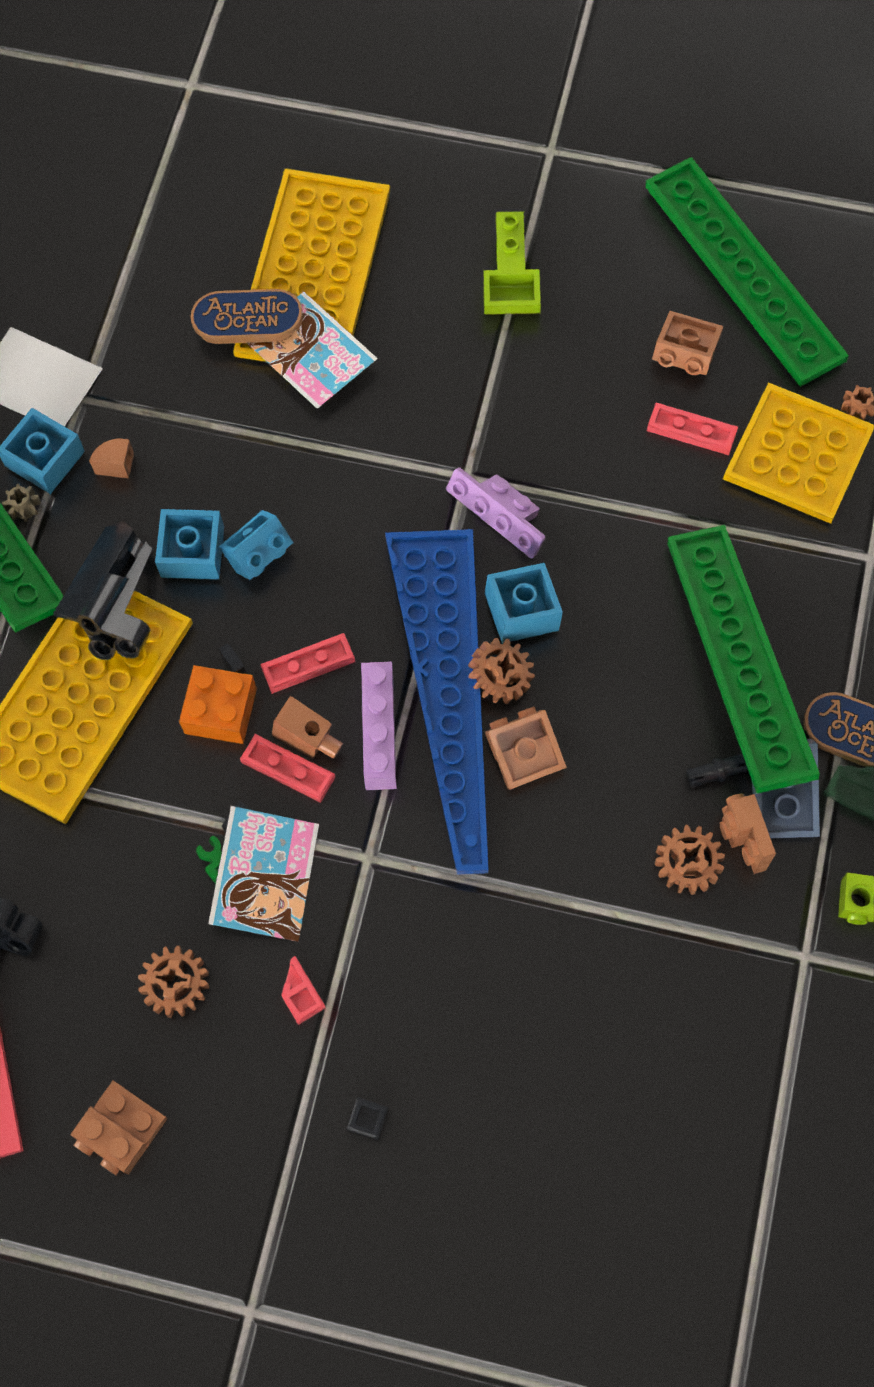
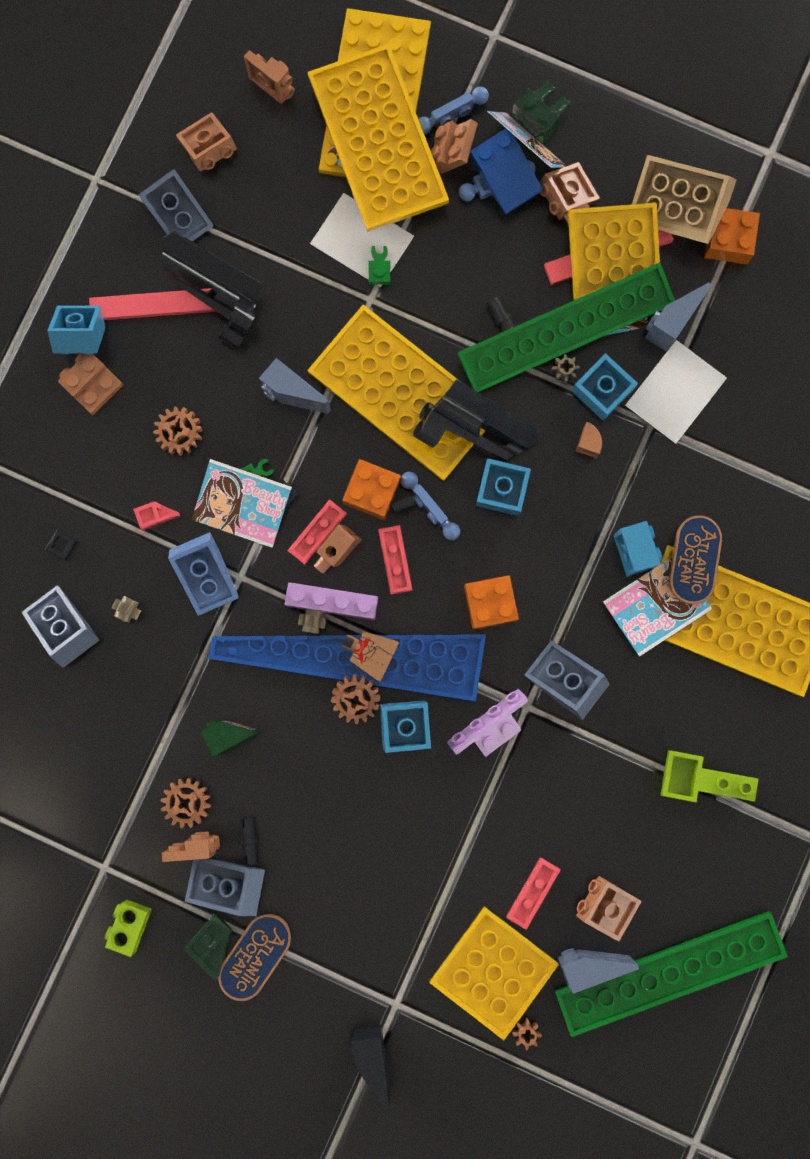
camera: 100 degrees right, 15 degrees up
(40, 1155) = (76, 329): none -> dark azure brick
(90, 833) = (290, 389): none -> sand blue slope
(236, 622) = (410, 481): none -> medium blue plate
(244, 378) = (637, 548): none -> dark azure brick
(256, 545) = (493, 536): dark azure brick -> none
(343, 533) = (491, 602): none -> orange brick
(371, 903) = (203, 573): none -> medium blue slope
(410, 745) = (312, 621): none -> dark tan gear
(422, 433) = (567, 679): none -> sand blue slope
(439, 656) = (371, 653): none -> medium nougat torso
(442, 997) = (126, 609): none -> dark tan gear
(485, 1089) = (60, 626): none -> sand blue slope
(525, 747) = (294, 703): nougat plate -> none
(589, 818) = (225, 735): none -> dark green slope
(742, 660) = (324, 878): green plate -> none
(764, 343) = (589, 968): none -> sand blue slope

